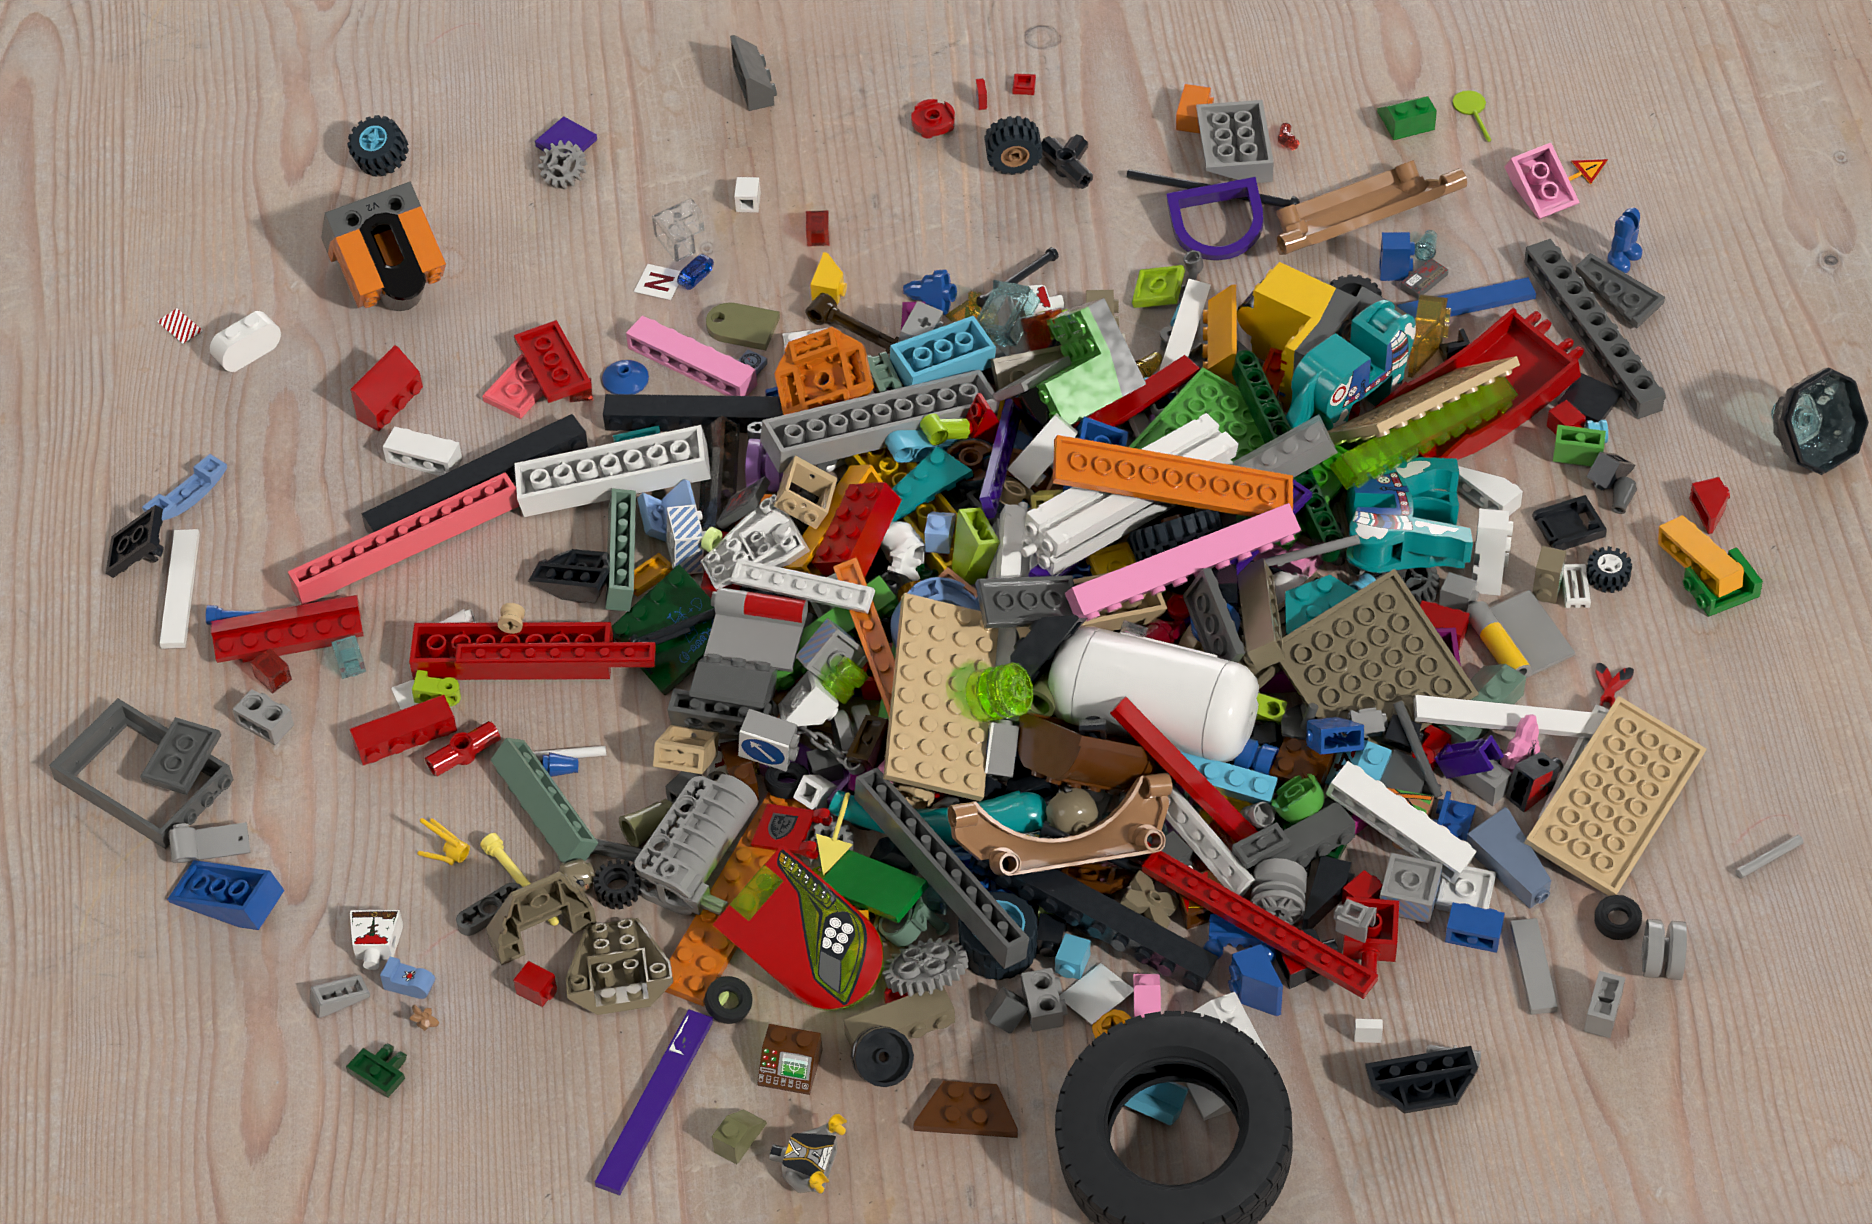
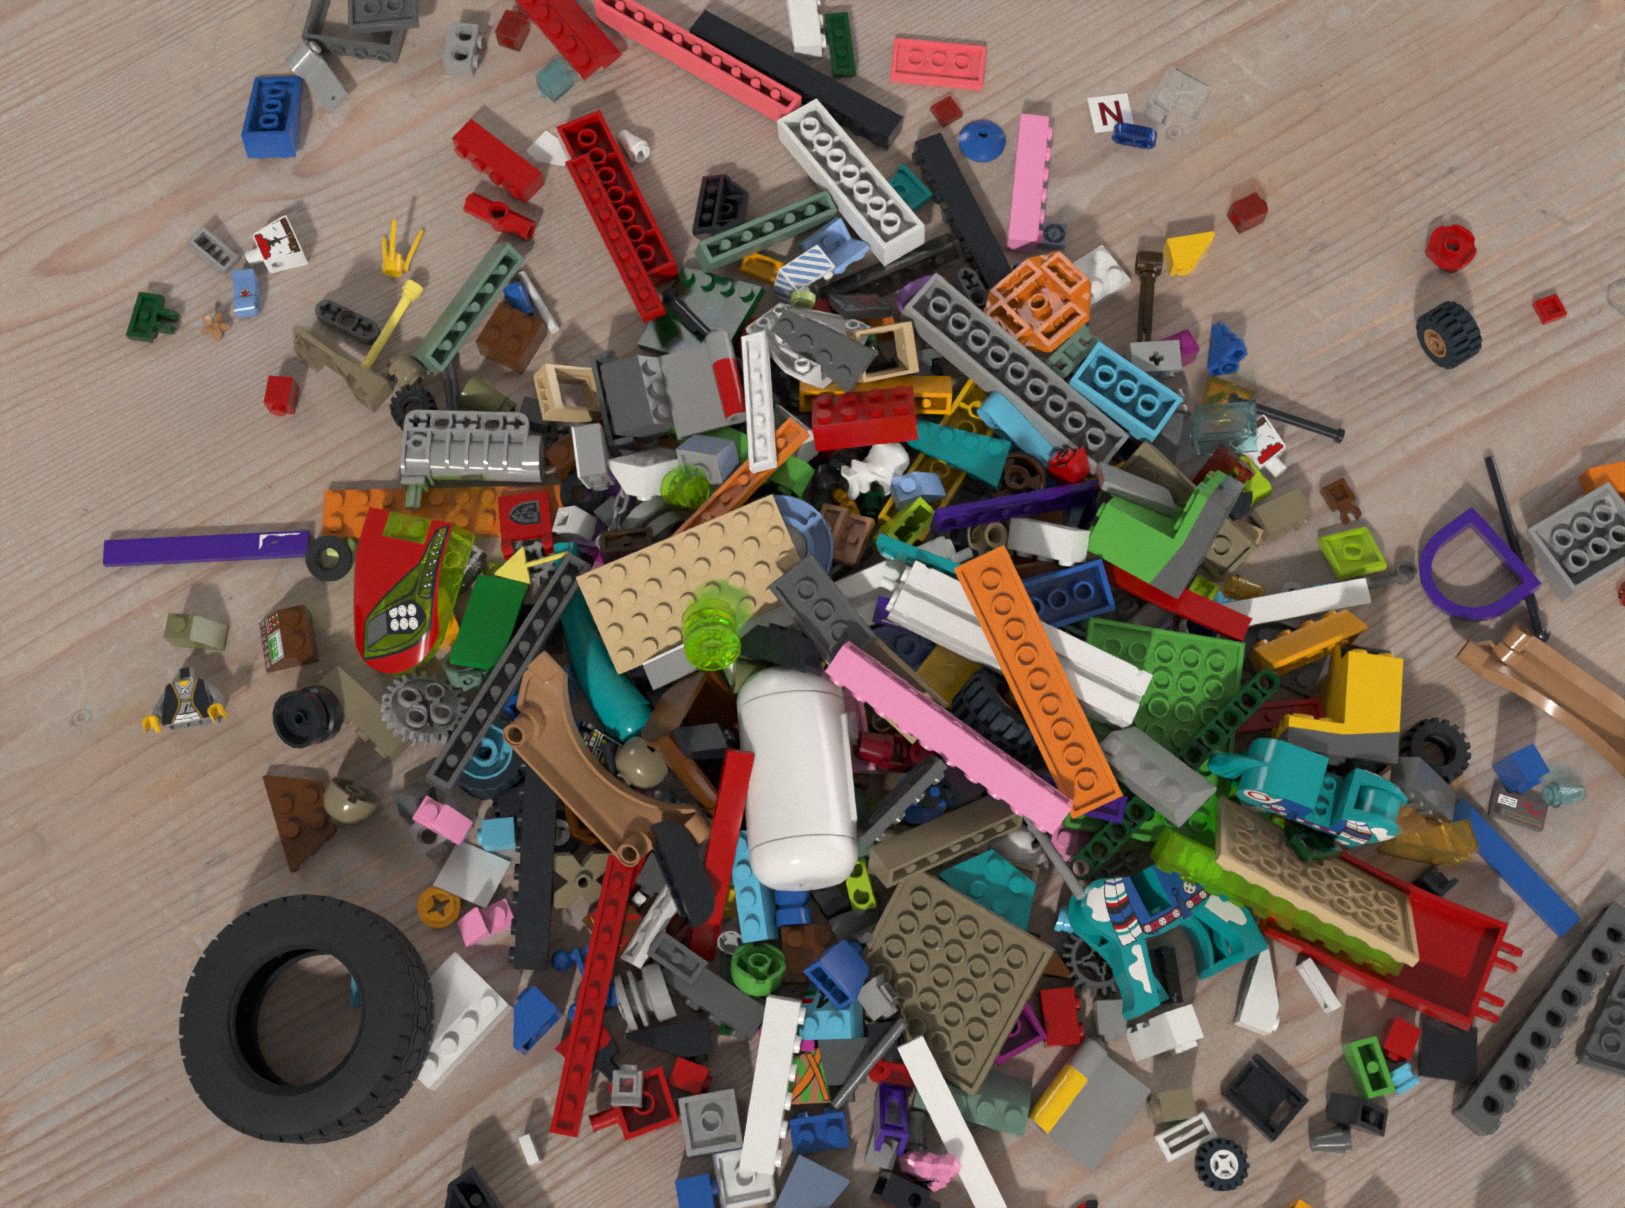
camera: 60 degrees right, 20 degrees up
(429, 688) = (554, 171): lime leg -> none
(468, 436) = (840, 45): none -> dark green plate
(511, 618) = (633, 181): tan wheel -> none
(552, 361) = (957, 71): red plate -> none
(596, 781) = (511, 338): none -> reddish brown brick
(617, 968) = (324, 449): dark tan wedge -> none
(742, 325) = (1097, 208): olive tile -> none
(747, 194) = (1254, 133): white brick -> none
(751, 74) = (1404, 63): dark grey slope -> none
(797, 513) = (840, 357): none -> dark grey wing
(940, 430) = (1030, 434): lime piece -> none
(980, 1059) = (348, 803): none -> dark tan cylinder
(981, 94) = (1508, 276): red tile -> none
(1013, 525) = (893, 548): none -> teal wing
(1041, 983) = (443, 820): none -> bright pink slope
(1067, 159) = (1476, 394): black piece -> none
(1105, 275) = (1340, 497): none -> reddish brown plate
(1192, 808) = (683, 872): none -> black brick
(1390, 394) = (1311, 844): none -> dark green hinge
(1498, 452) = (1318, 985): none -> white tile

